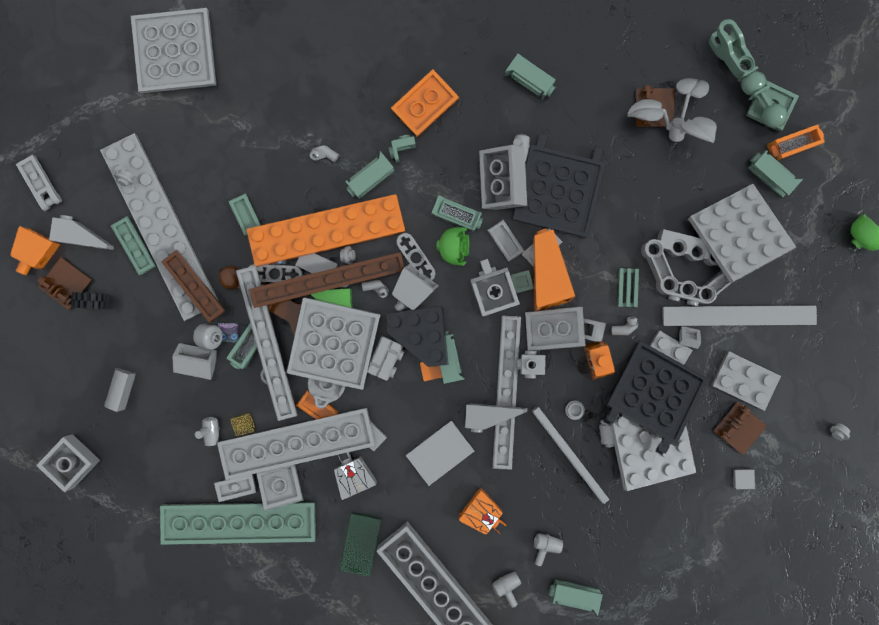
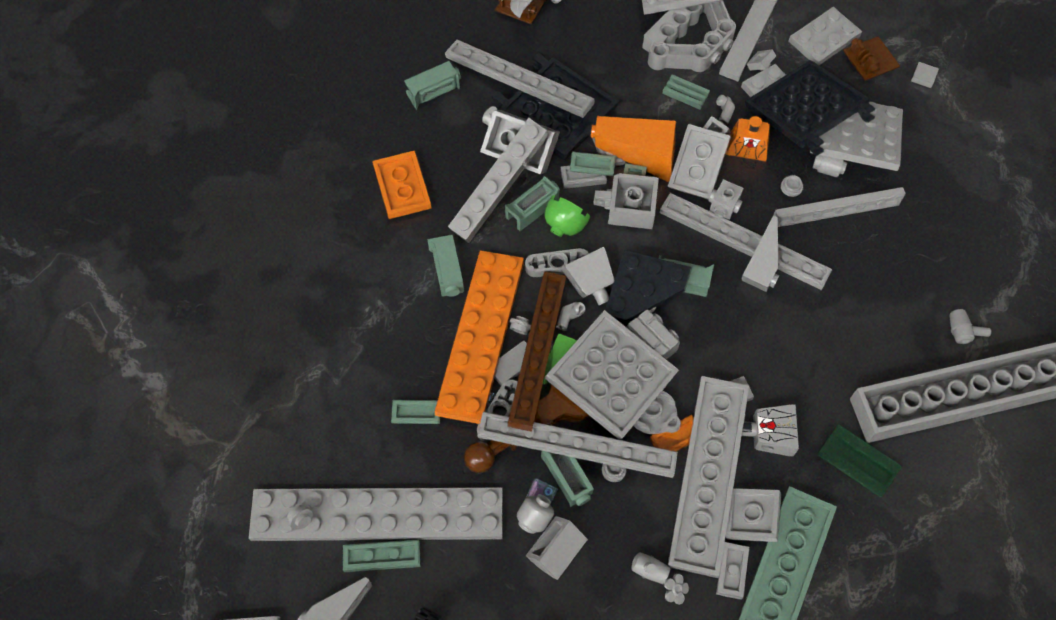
camera: 65 degrees left, 25 degrees down
(173, 50) = (190, 402): light grey plate -> none
(193, 286) = (468, 498): reddish brown plate -> none
(203, 454) = (676, 589): none -> light grey plant
(242, 424) = (658, 529): clear yellow plate -> none
(323, 152) = (394, 301): light grey arm -> none
(403, 143) = (431, 219): sand green bracket -> none
(430, 373) = (687, 301): orange tile -> none
(440, 453) = (784, 332): light grey tile -> none
(453, 180) = (498, 180): none -> light grey brick
(482, 513) = (870, 315): orange torso -> none
(514, 244) = (592, 164): none -> sand green tile
(545, 544) = (928, 270): light grey piece -> none
(569, 145) = (520, 78): none -> light grey tile
(575, 595) = (999, 264): sand green window -> none

